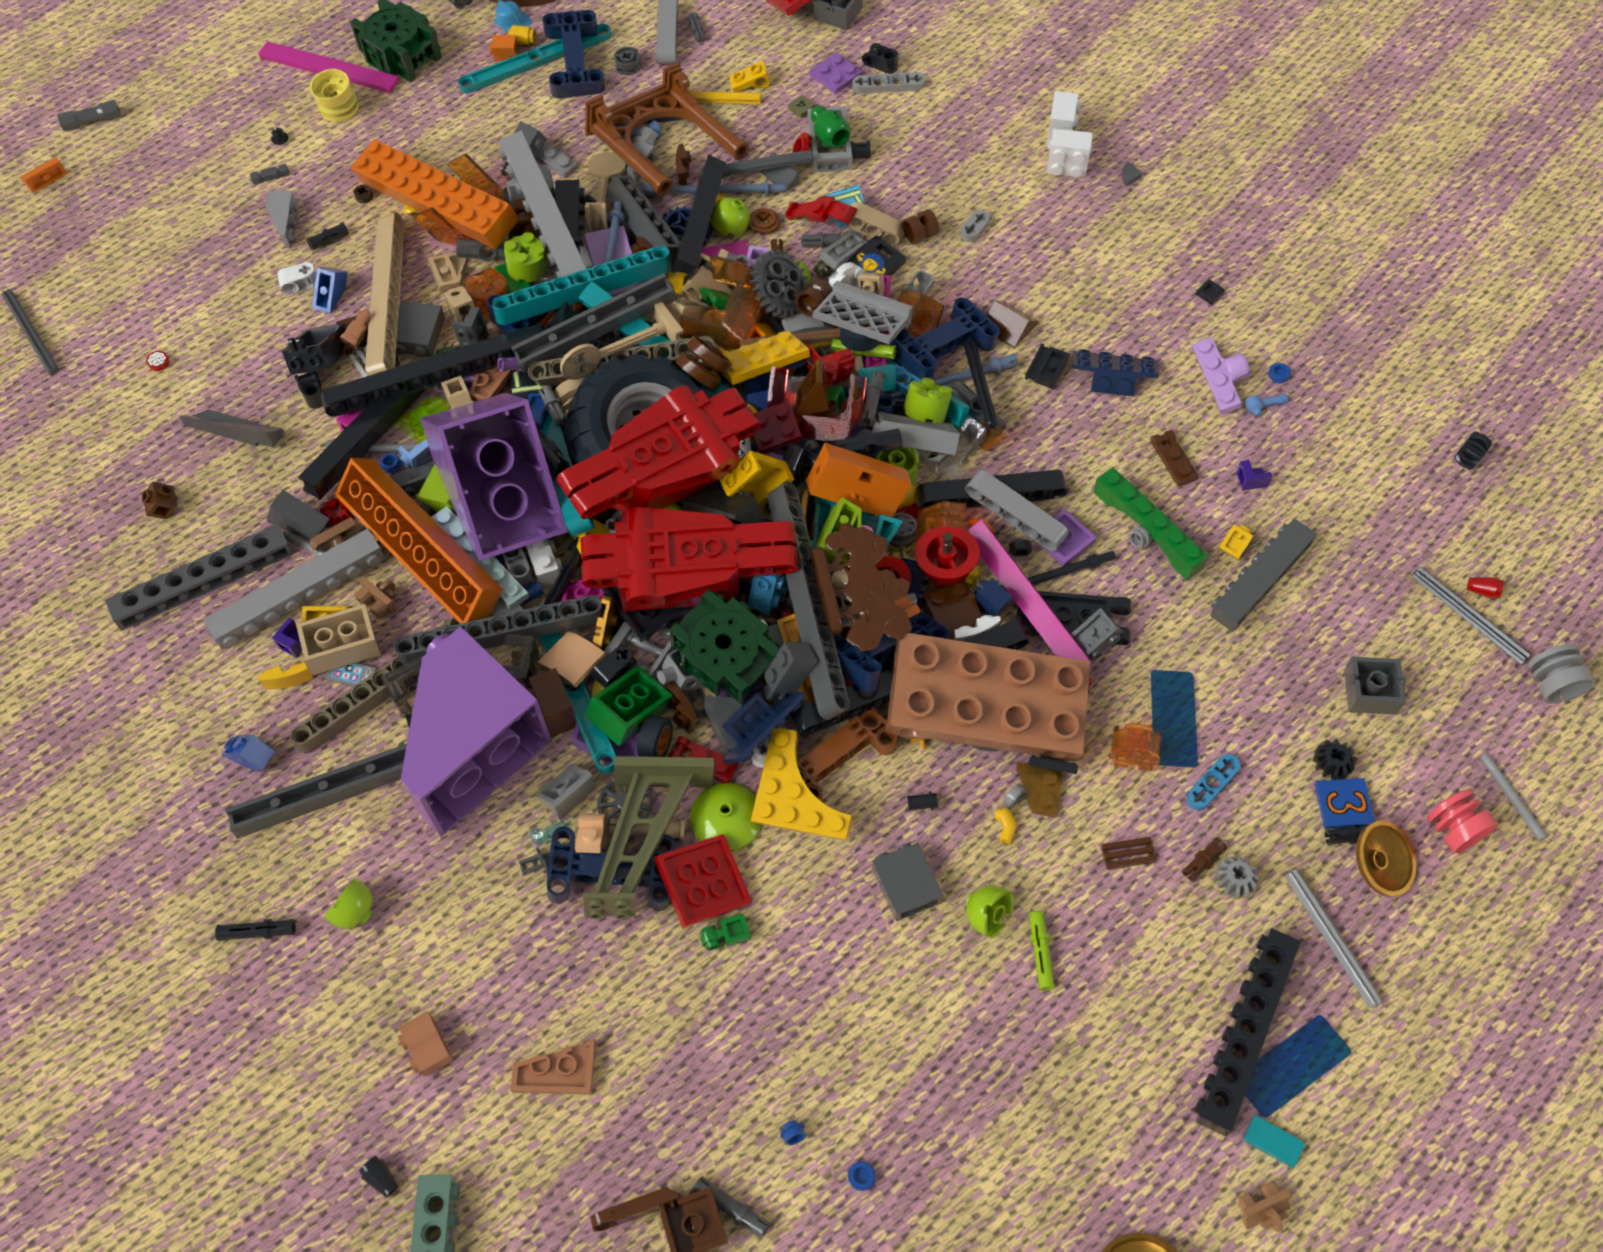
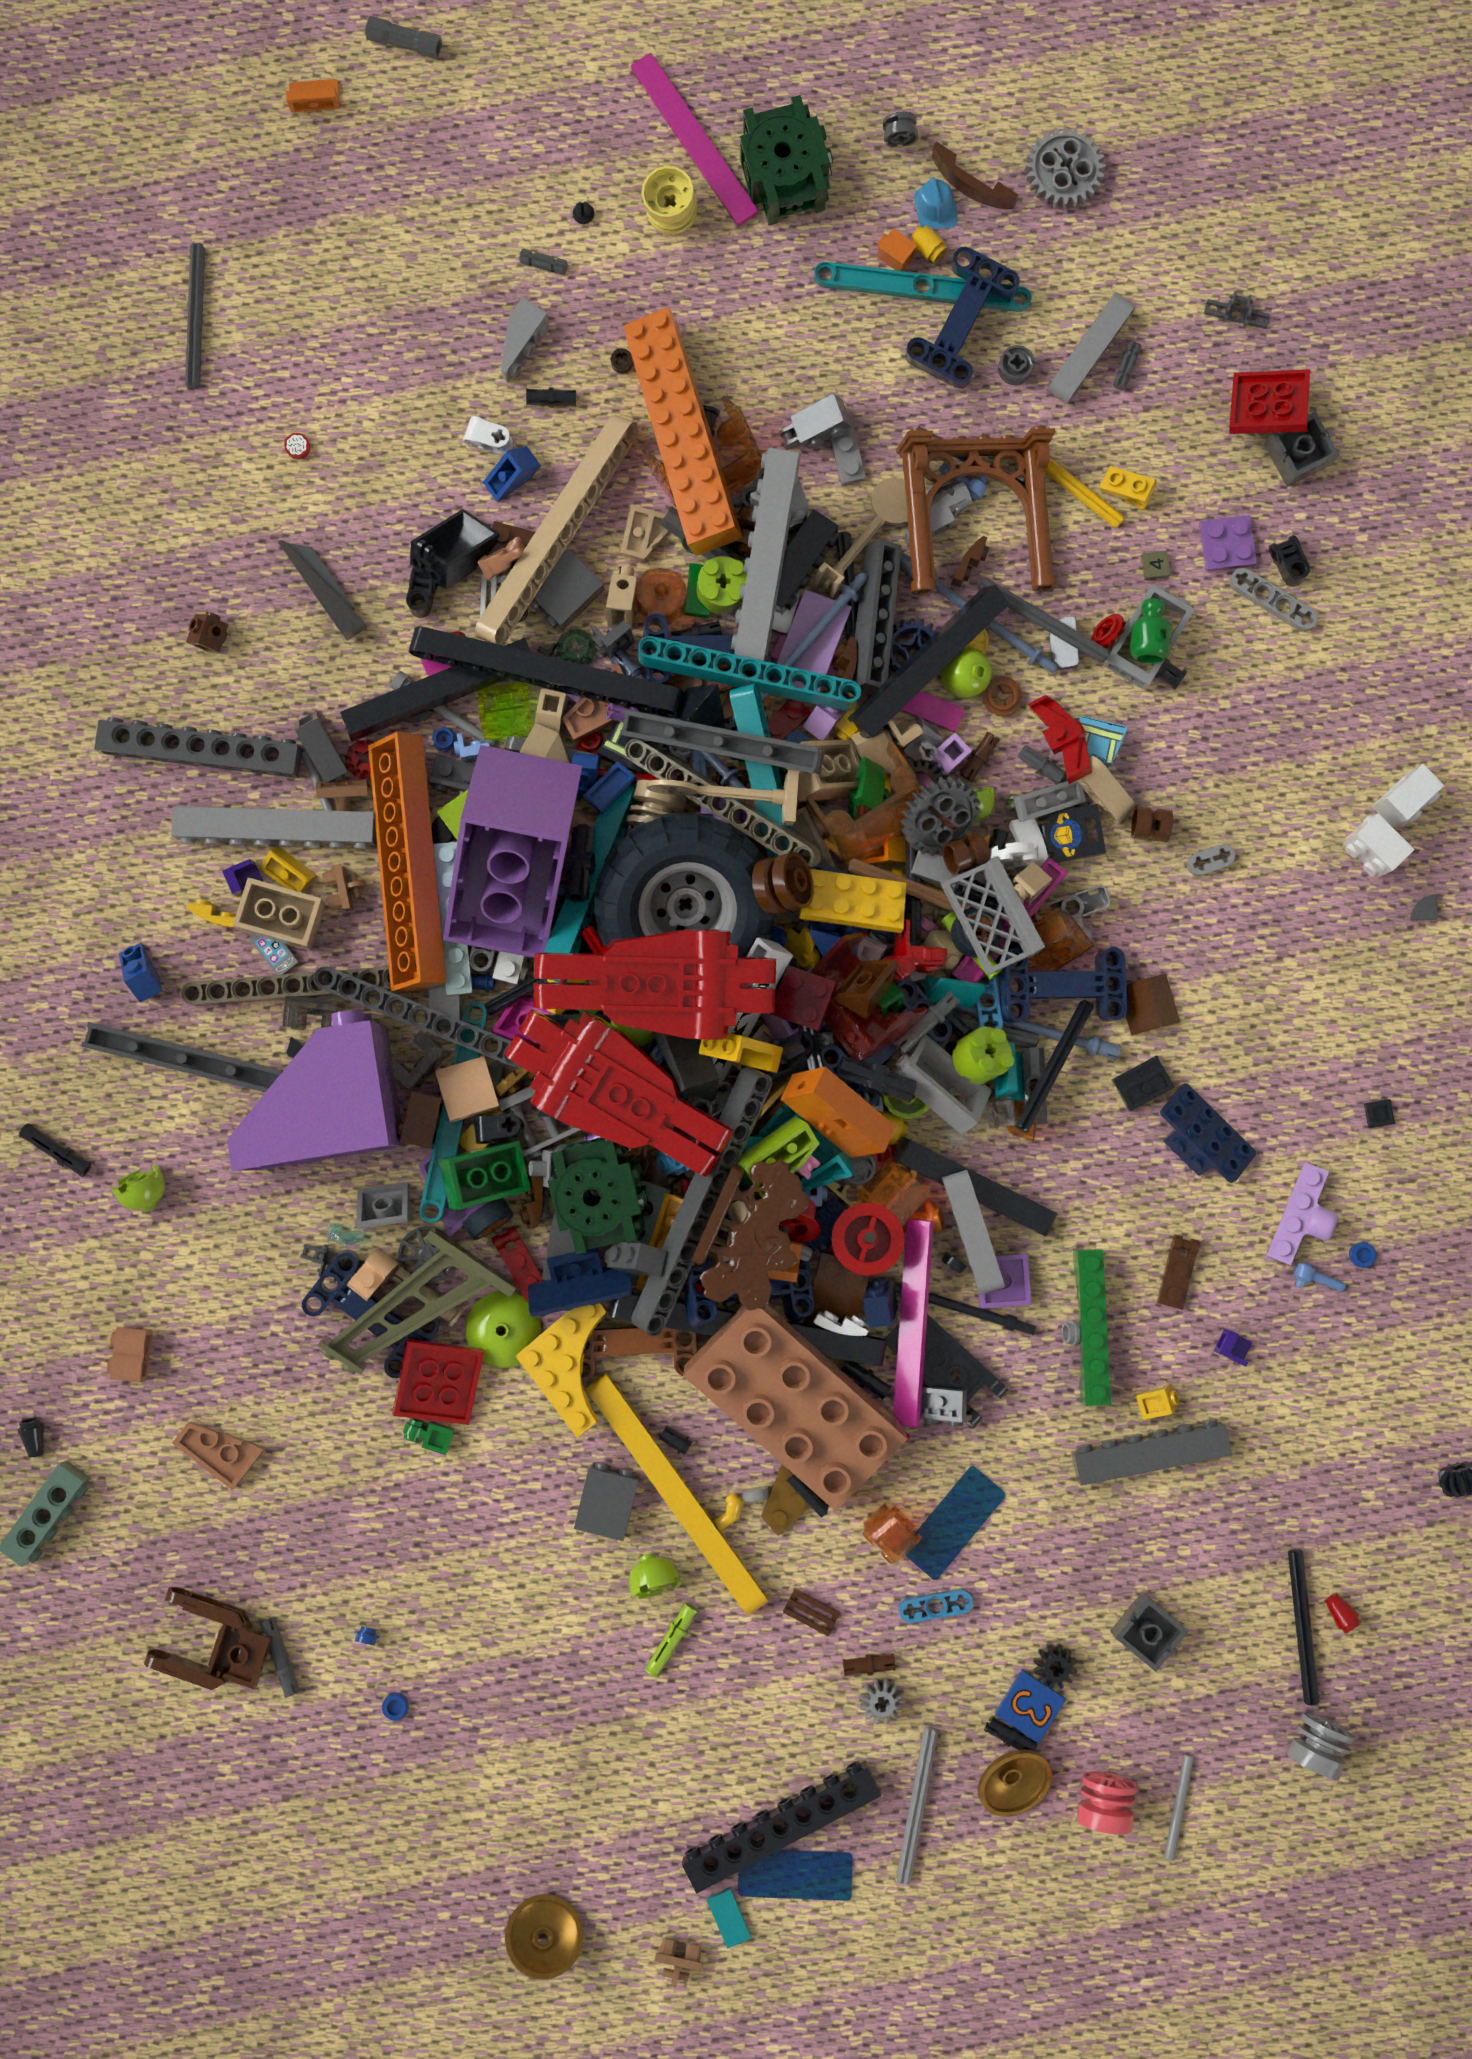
camera: 35 degrees right, 25 degrees up
(552, 405) = (626, 799): light grey axle -> none
(961, 838) = (676, 1494): none -> yellow beam

